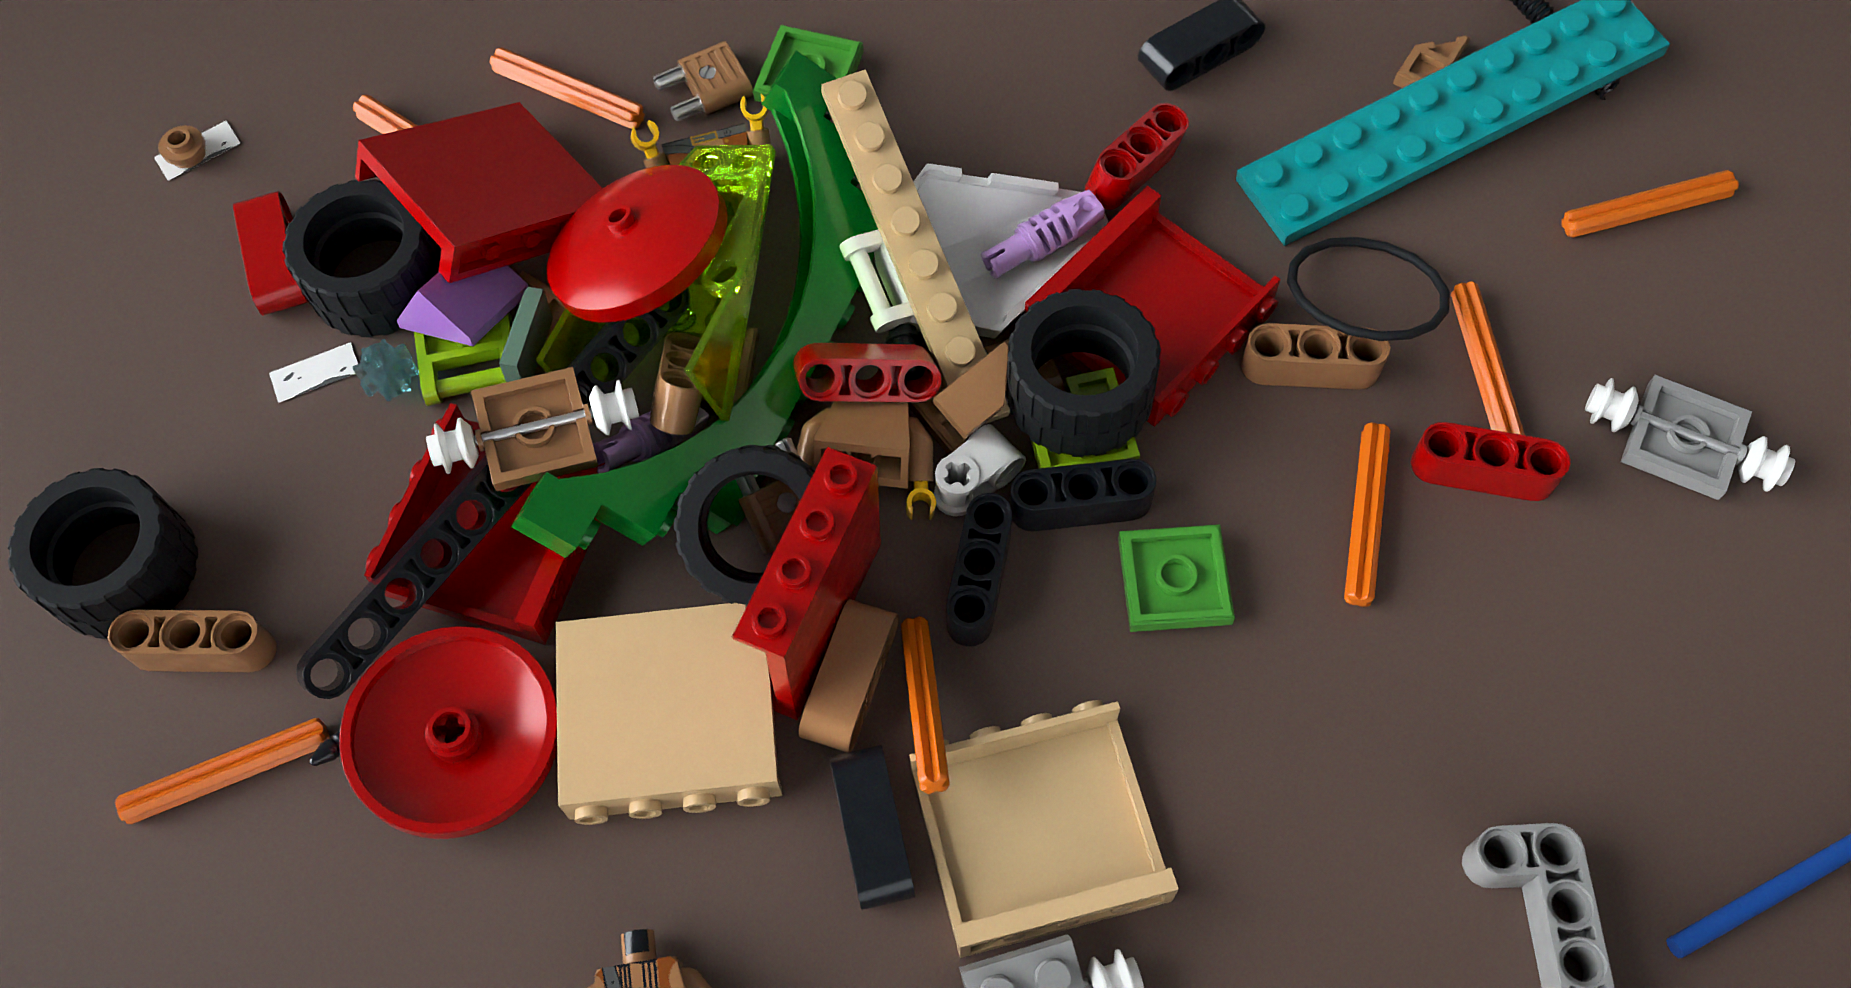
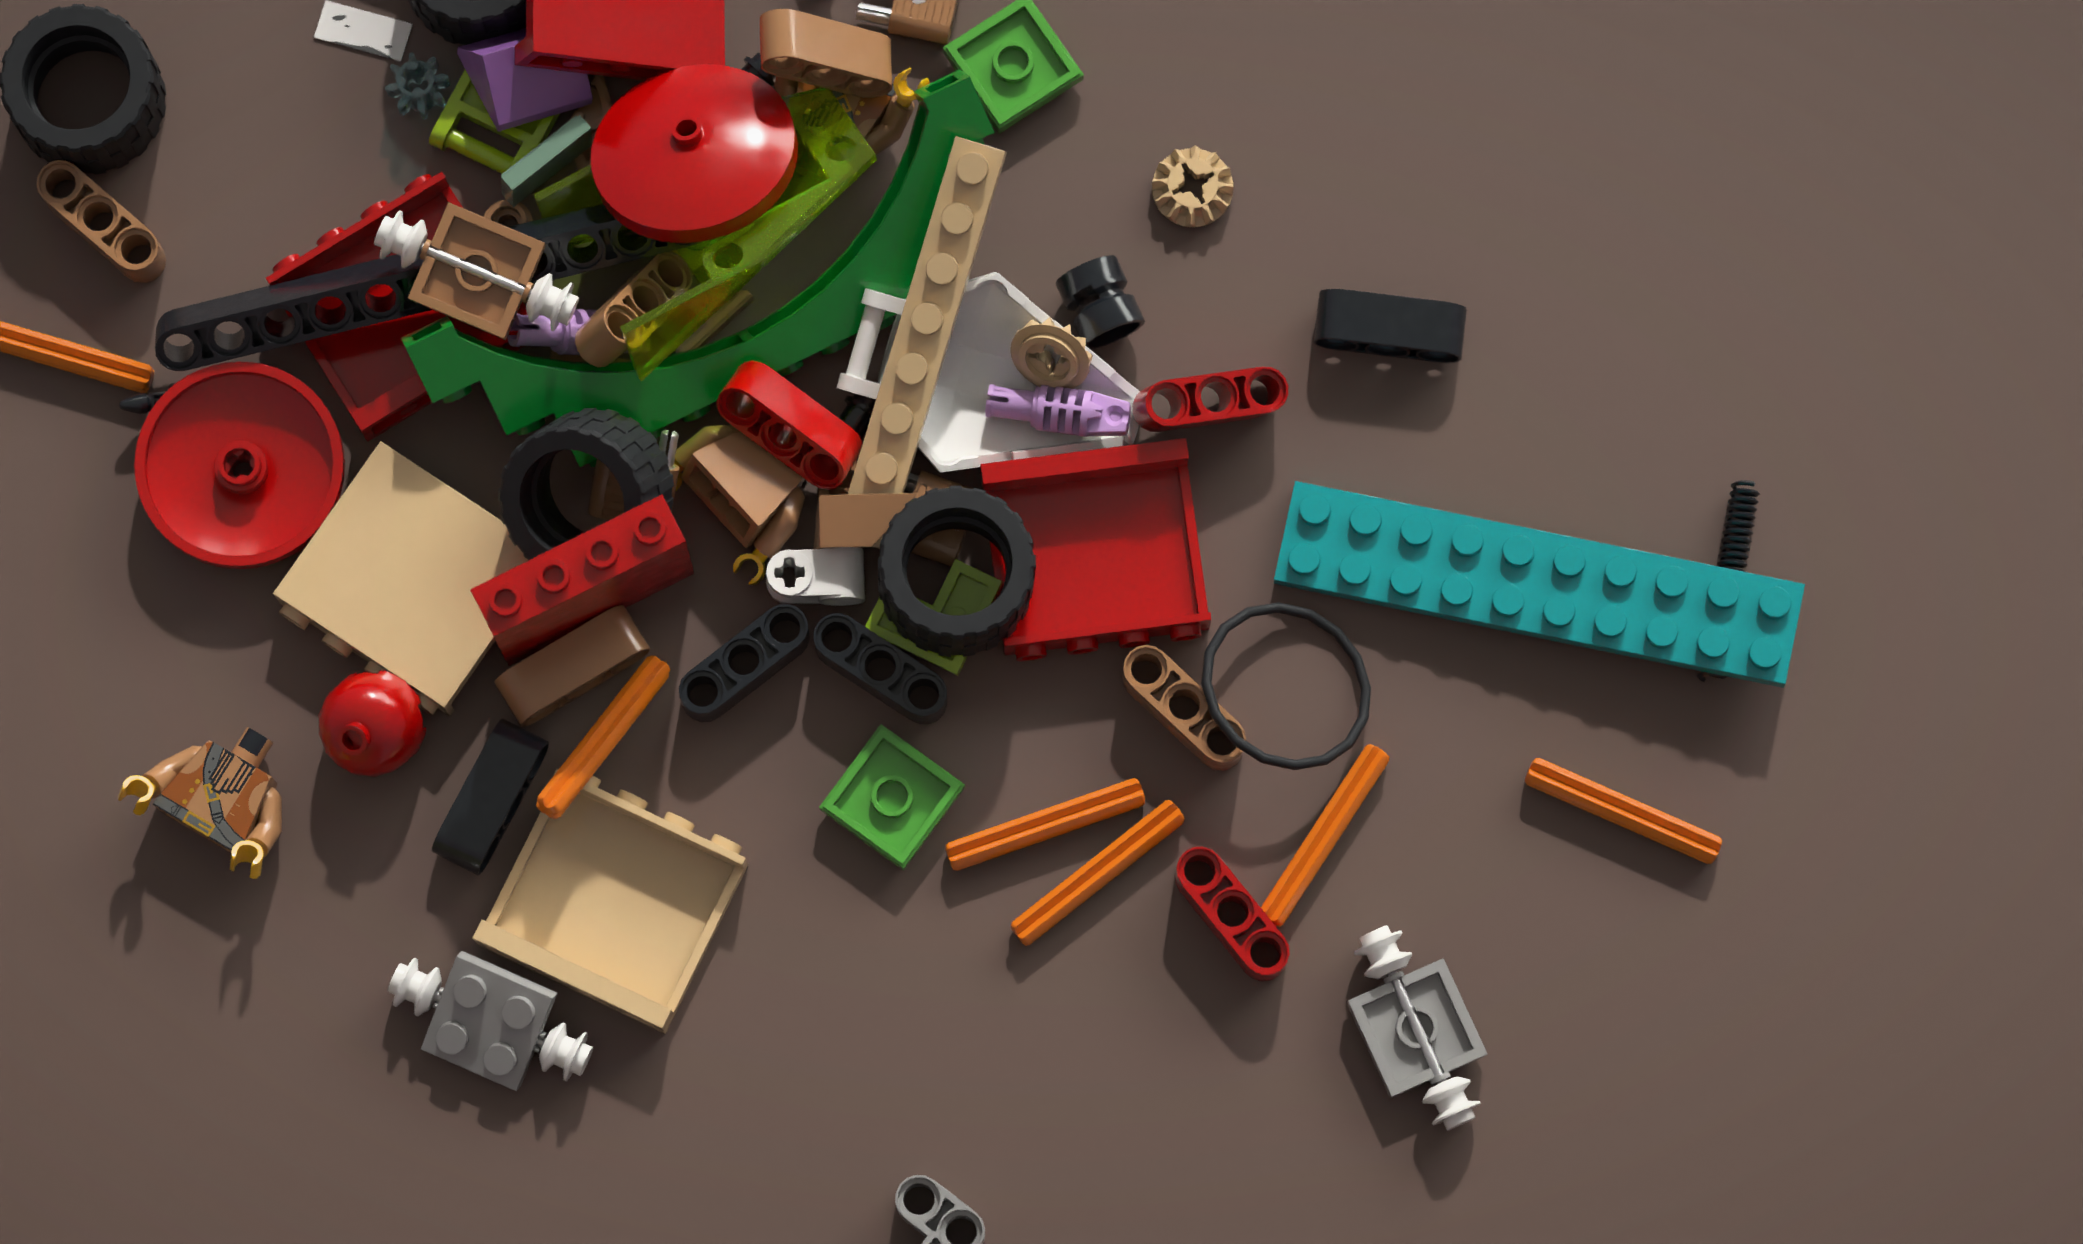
camera: 35 degrees right, 15 degrees up
(676, 116) = (825, 53): none -> medium nougat beam
(726, 844) = (371, 723): none -> red cylinder
(1003, 72) = (1184, 207): none -> tan gear
(1021, 154) = (1099, 319): none -> black wheel
(1028, 199) = (1039, 366): none -> tan gear
(1297, 512) = (1045, 824): none -> orange axle
(1429, 58) = (1583, 516): medium nougat tile -> none

